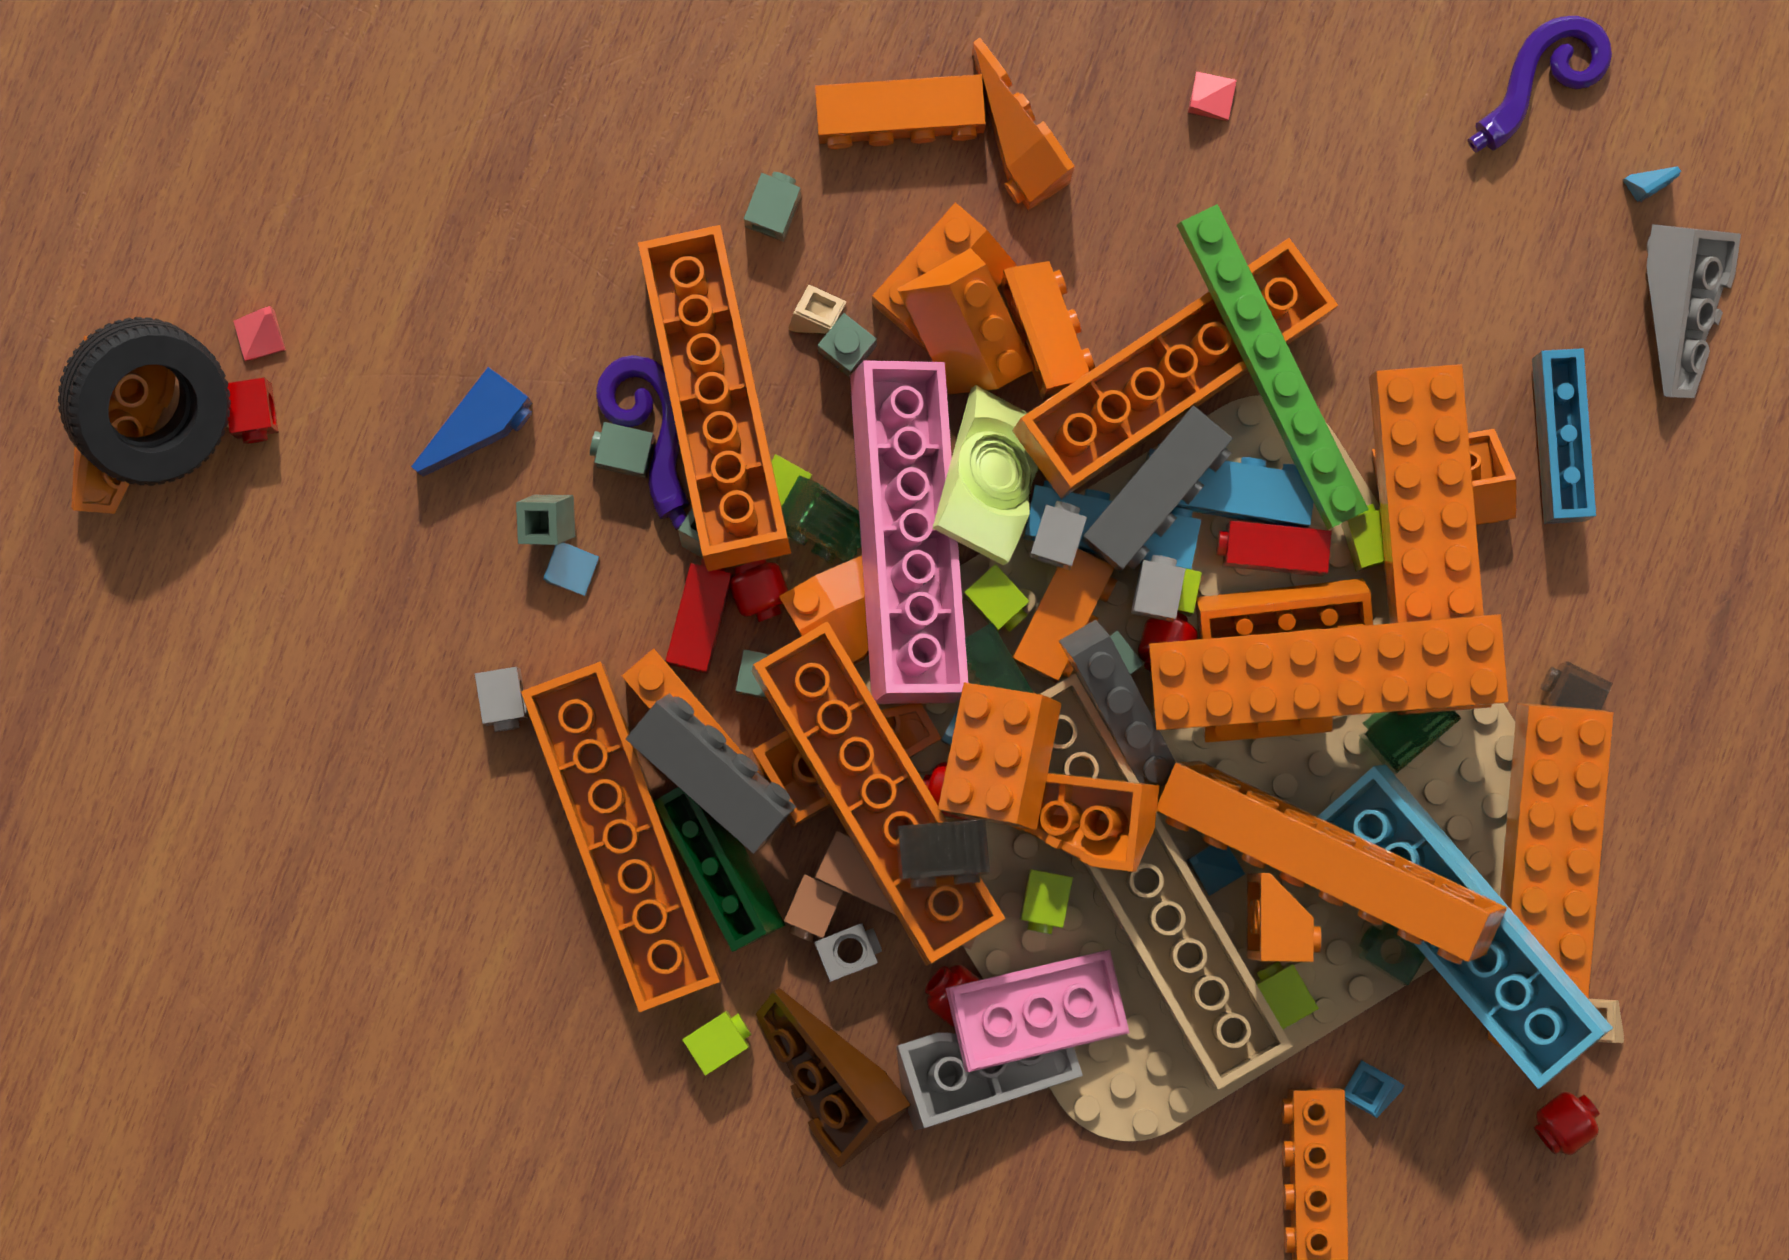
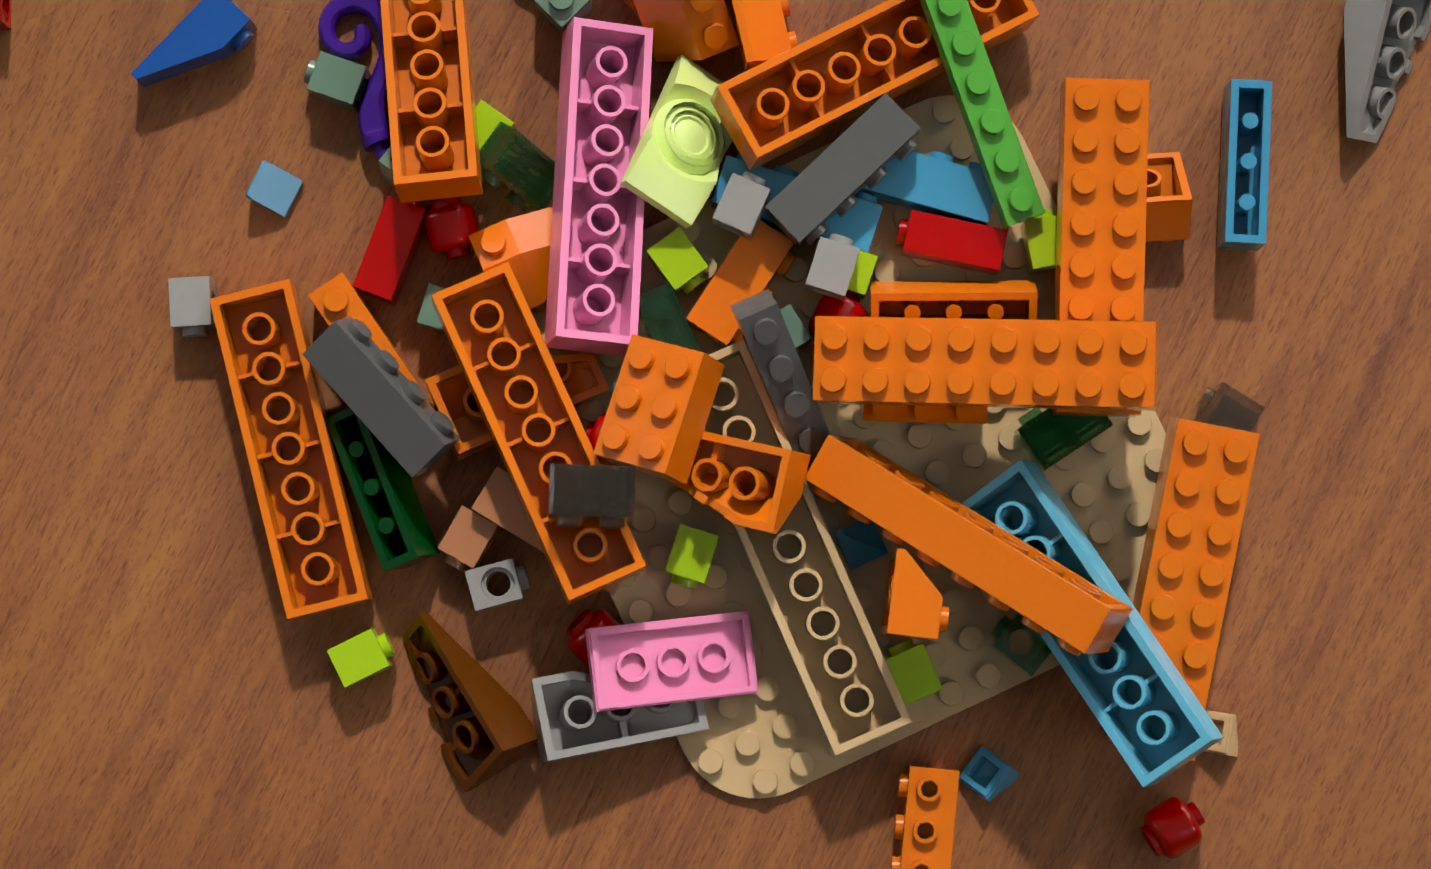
camera: 15 degrees right, 0 degrees up
(545, 519) = (254, 138): sand green brick -> none

